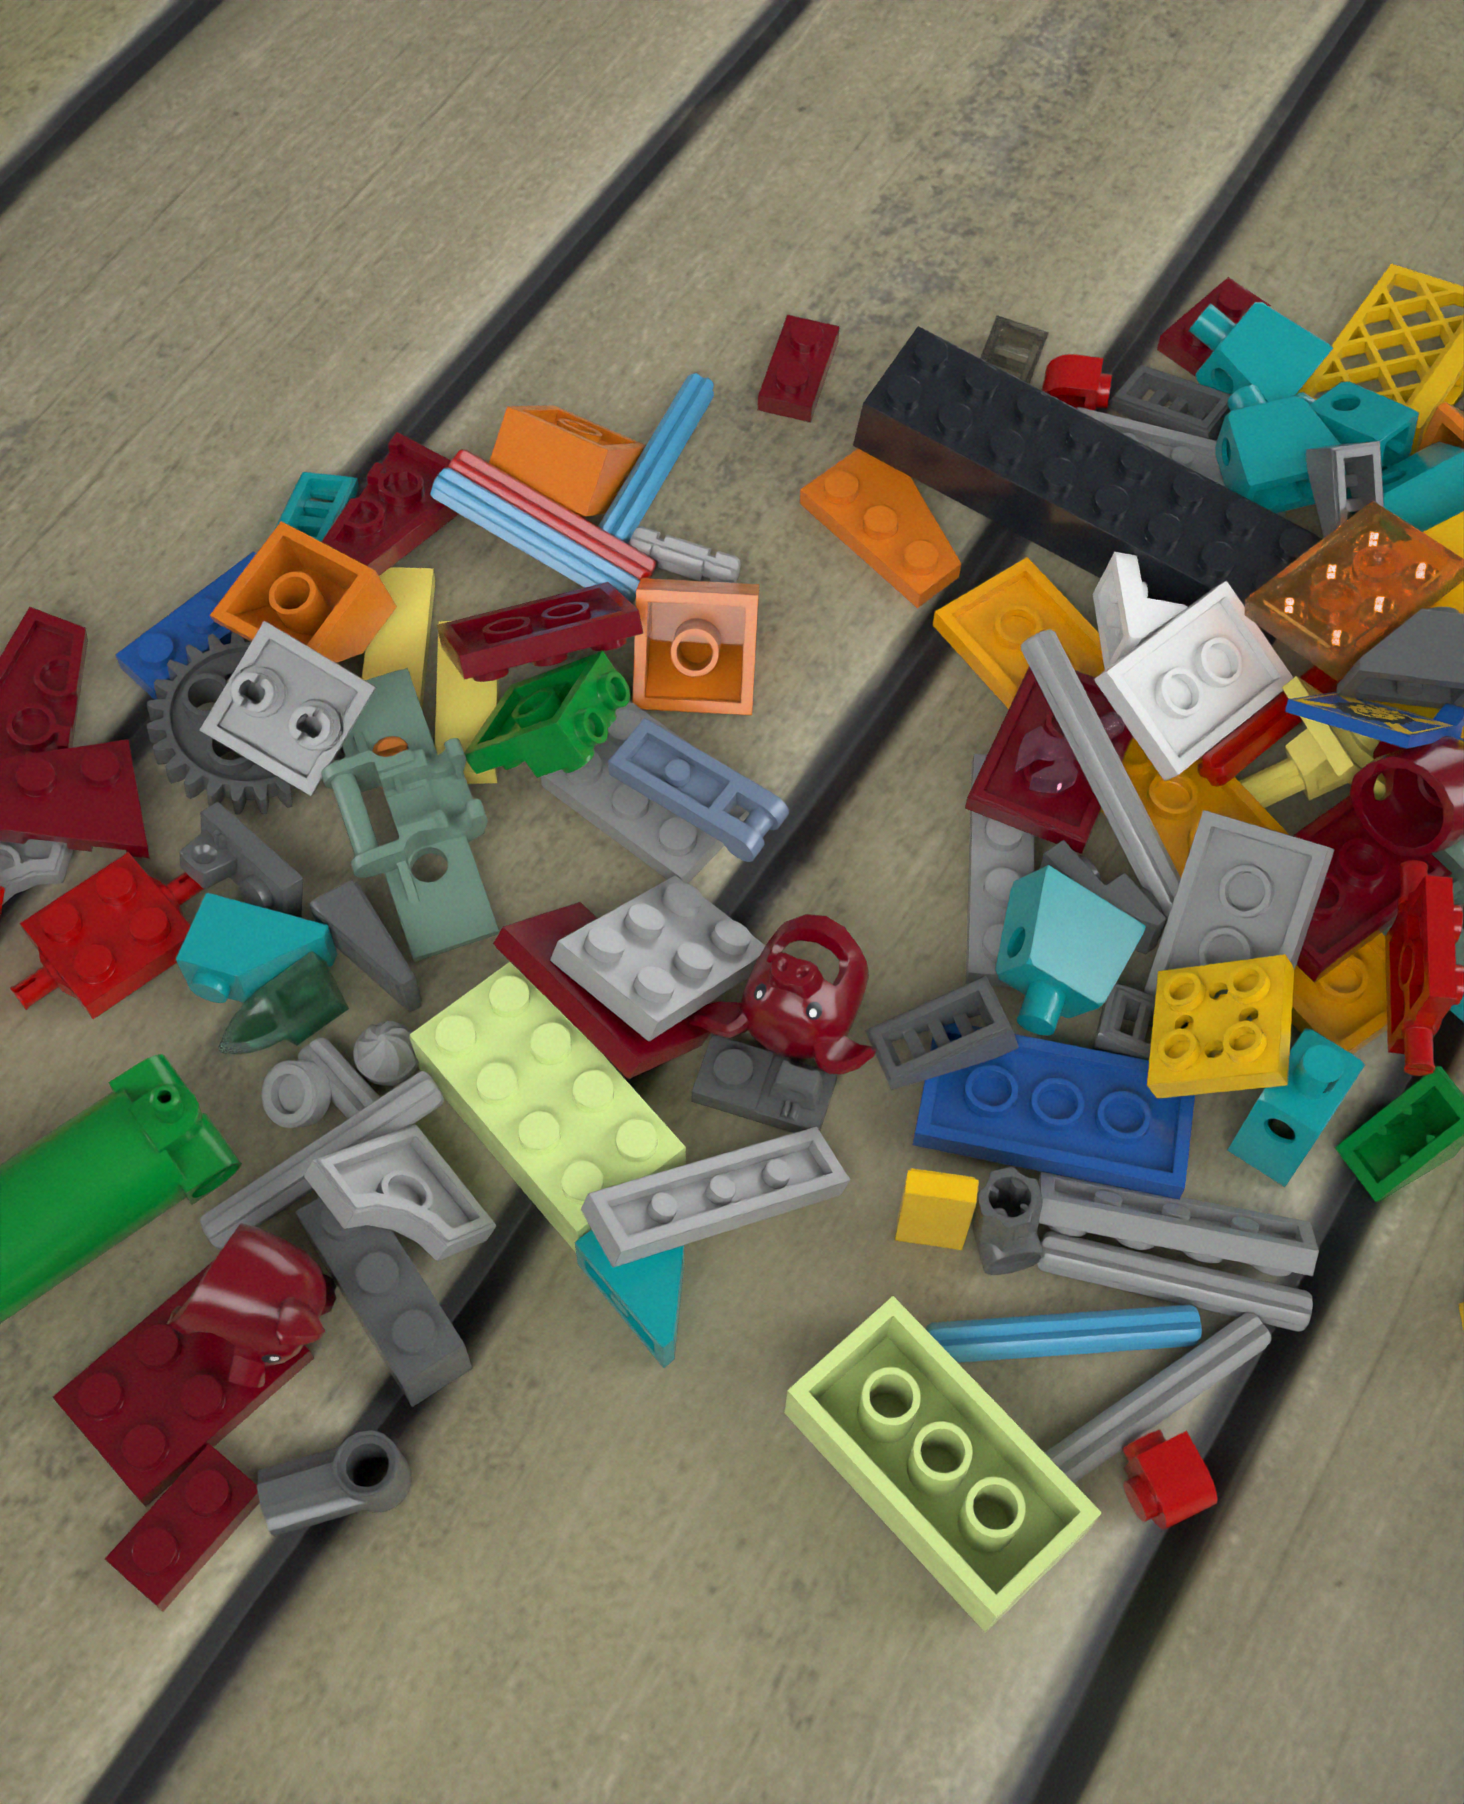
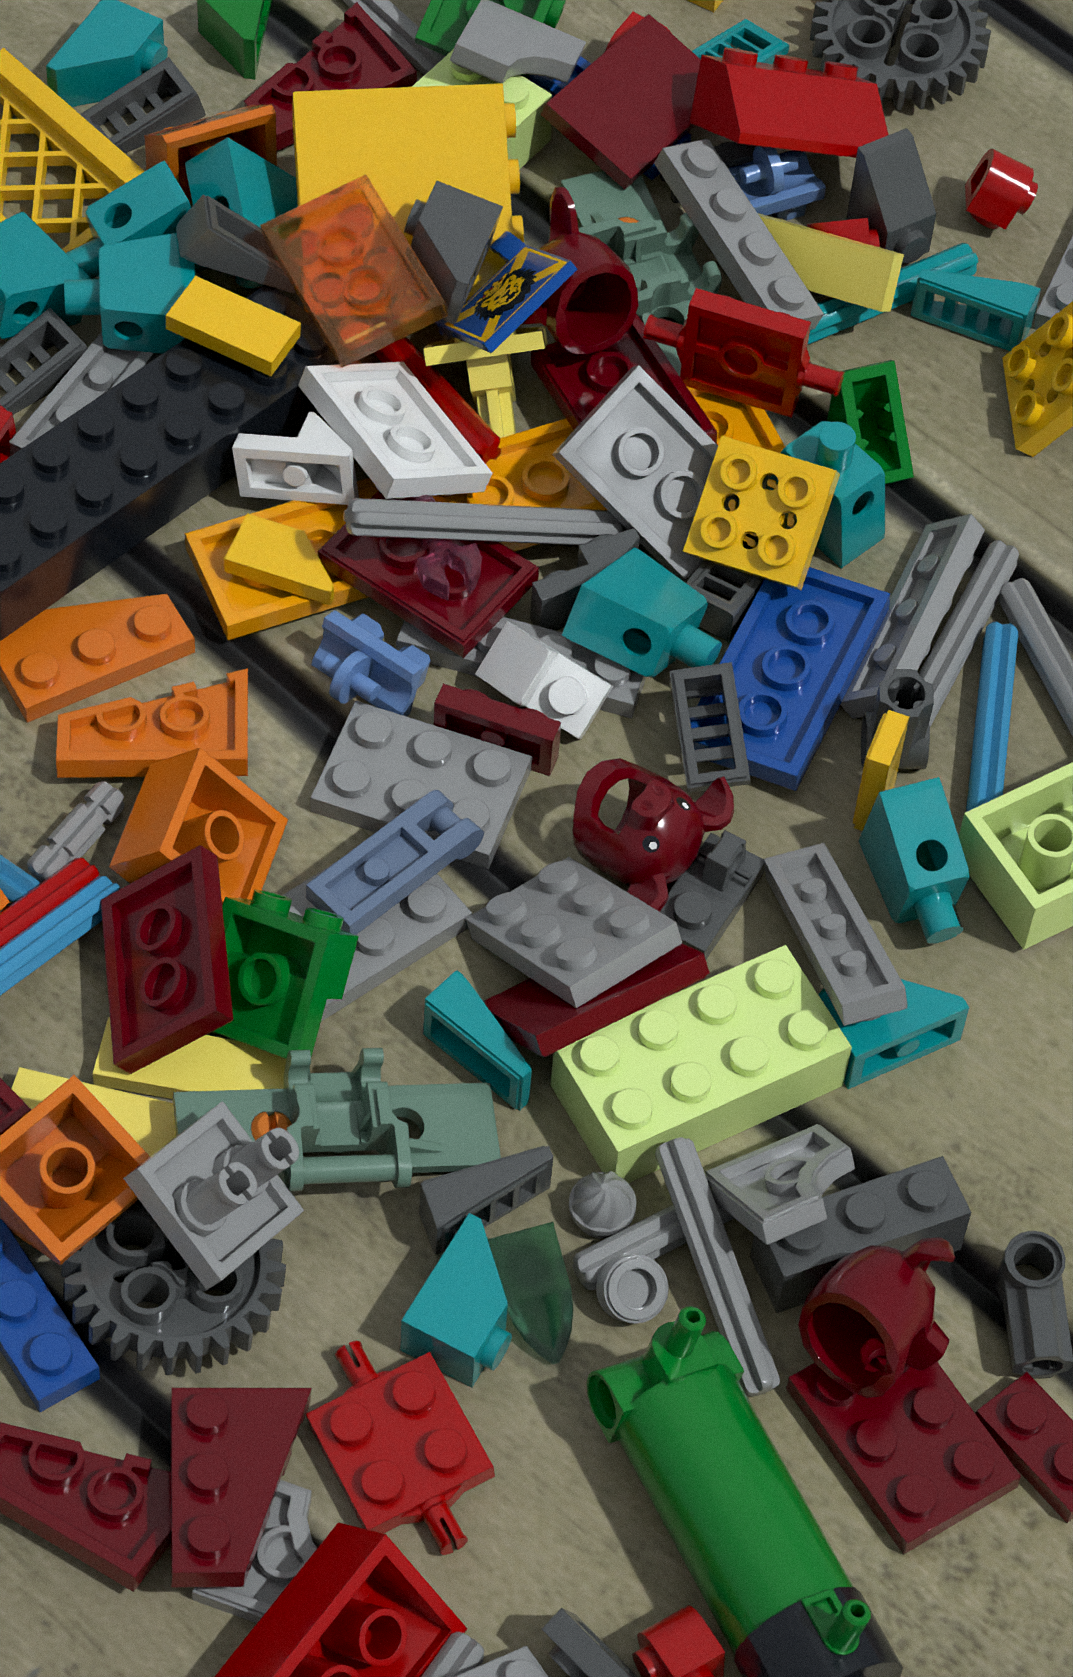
camera: 80 degrees left, 5 degrees down
(234, 851) = (345, 1302): dark grey hinge -> none
(551, 884) = (473, 1037): none -> teal slope
(804, 597) = (130, 735): none -> orange wing
(836, 813) = (393, 761): none -> light grey plate
(859, 1249) = (917, 857): none -> teal torso
(896, 880) = (500, 724): none -> dark red plate
(928, 727) = (367, 666): none -> medium blue hips
(962, 883) = (543, 679): none -> white slope
(1016, 616) = (278, 558): none -> yellow tile
(1245, 511) = (233, 326): none -> yellow tile

